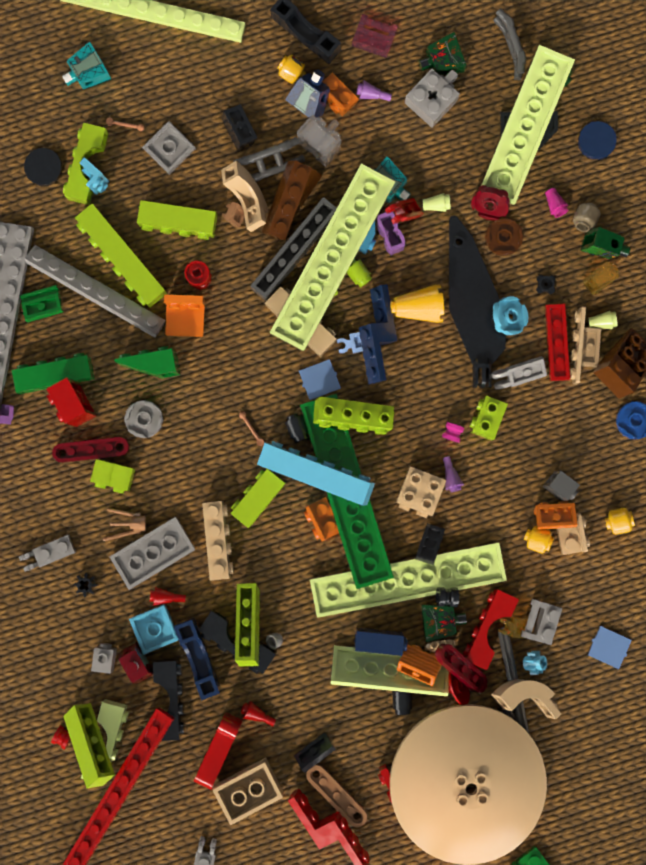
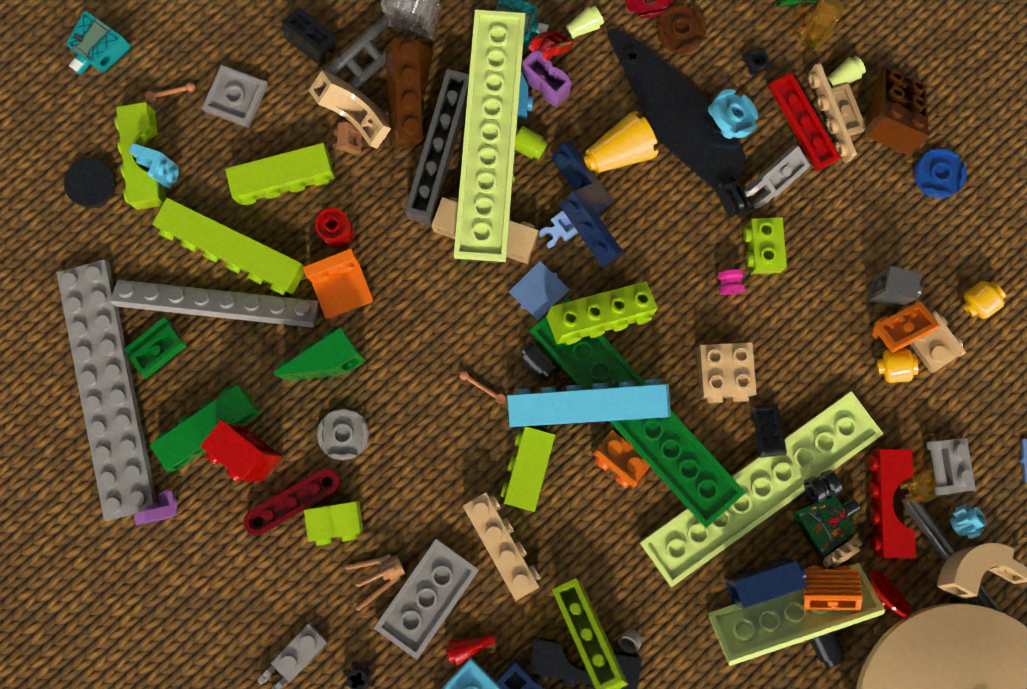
camera: 25 degrees left, 5 degrees down
(453, 481) = (761, 341): medium lavender cone -> none
(461, 668) = (883, 569): dark red plate -> none

